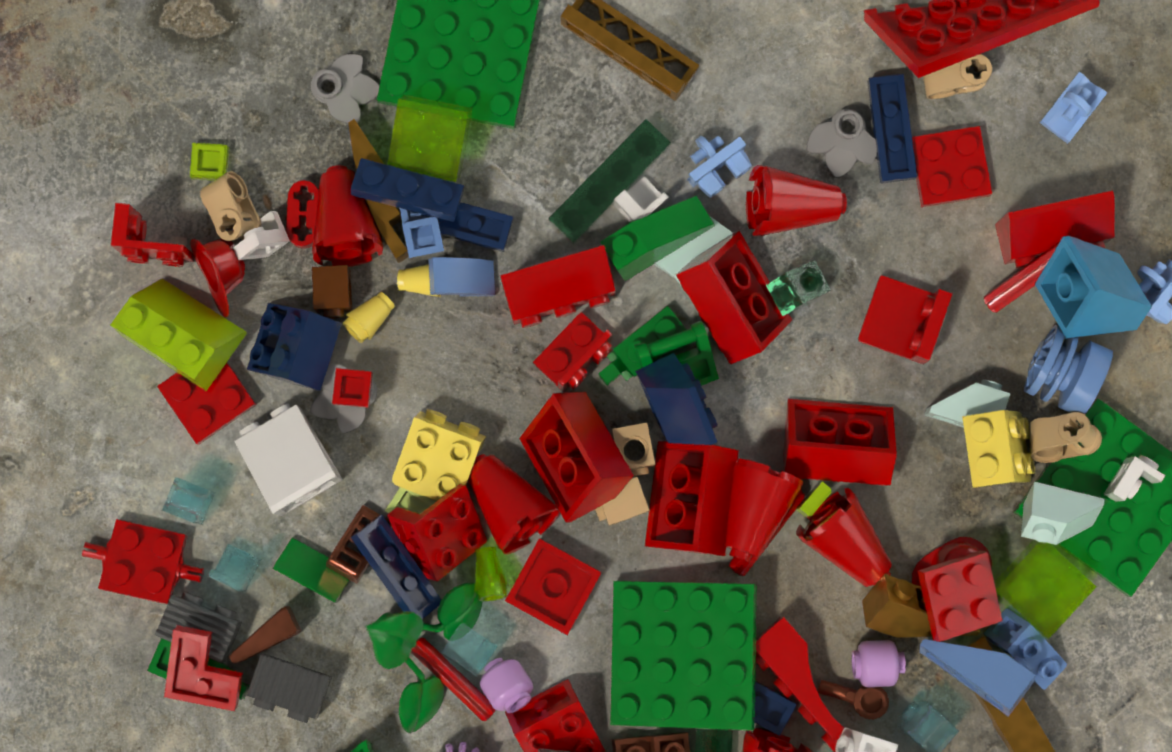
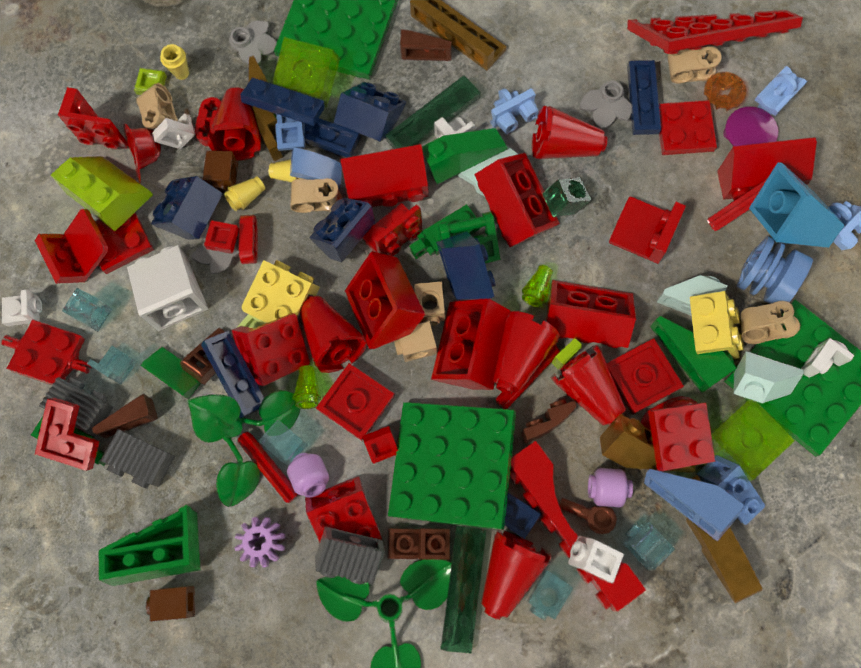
camera: 15 degrees right, 10 degrees down
(97, 505) = (21, 309): none -> white bracket
(157, 420) = (75, 253): none -> red bracket
(239, 128) = (175, 61): none -> light yellow cone
(384, 382) = (248, 239): none -> red beam
(456, 313) = (313, 195): none -> tan piece
(509, 360) = (343, 228): none -> dark blue slope
(523, 182) = (369, 110): none -> dark blue slope
(579, 79) = (423, 47): none -> copper slope
(591, 638) = (380, 444): none -> red plate
(770, 413) = (537, 288): none -> clear neon green cone
(806, 581) = (555, 416): none -> copper slope
(911, 518) = (644, 376): none -> red plate
(986, 503) = (702, 368): none -> green slope
(1001, 92) = (725, 81): none -> clear orange gear
(1037, 163) = (750, 126): none -> magenta dish

